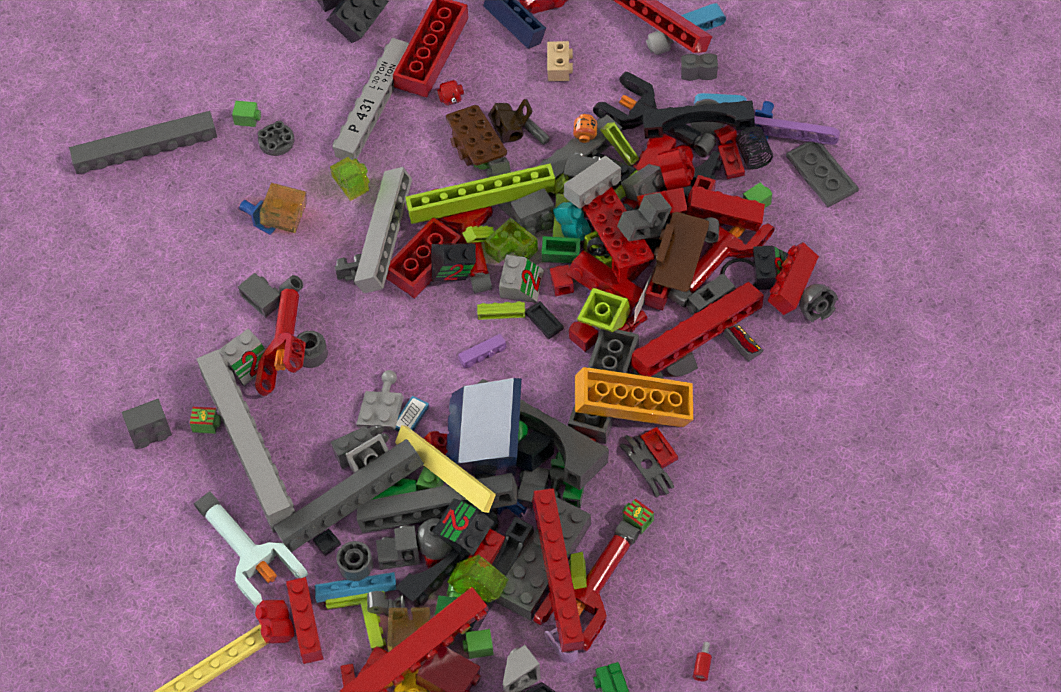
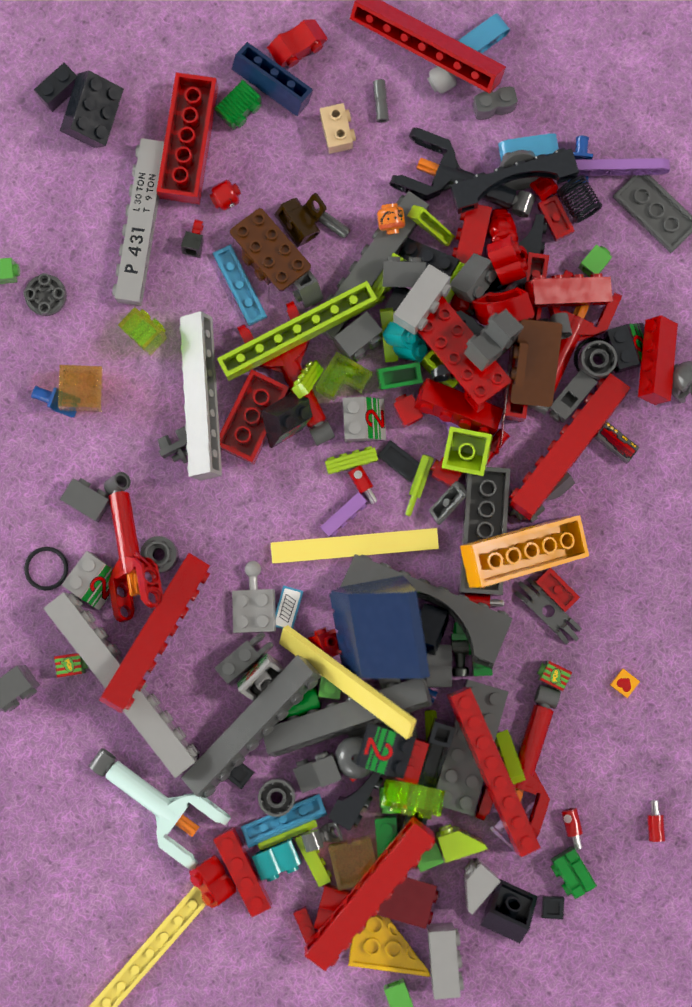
camera: 15 degrees left, 25 degrees up
(201, 330) = (46, 588): none -> black tyre
(286, 399) = (154, 633): none -> red brick
(339, 617) = (276, 860): none -> teal brick
(413, 121) = (193, 241): none -> pearl dark grey piece
(442, 159) = (240, 285): none -> dark azure tile
(468, 375) = (356, 544): none -> light yellow tile
(480, 31) = (238, 105): none -> green brick
(506, 328) = (362, 482): none -> red piece
(511, 632) = (458, 843): none -> lime slope
(556, 337) = (419, 481): none -> lime axle
(576, 353) = (448, 502): none -> dark grey slope
(603, 46) = (380, 98): none -> dark grey piece
(623, 648) = (573, 826): none -> red piece
(702, 538) = (624, 683): none -> light orange tile
(739, 267) = (605, 352): none -> dark grey piece

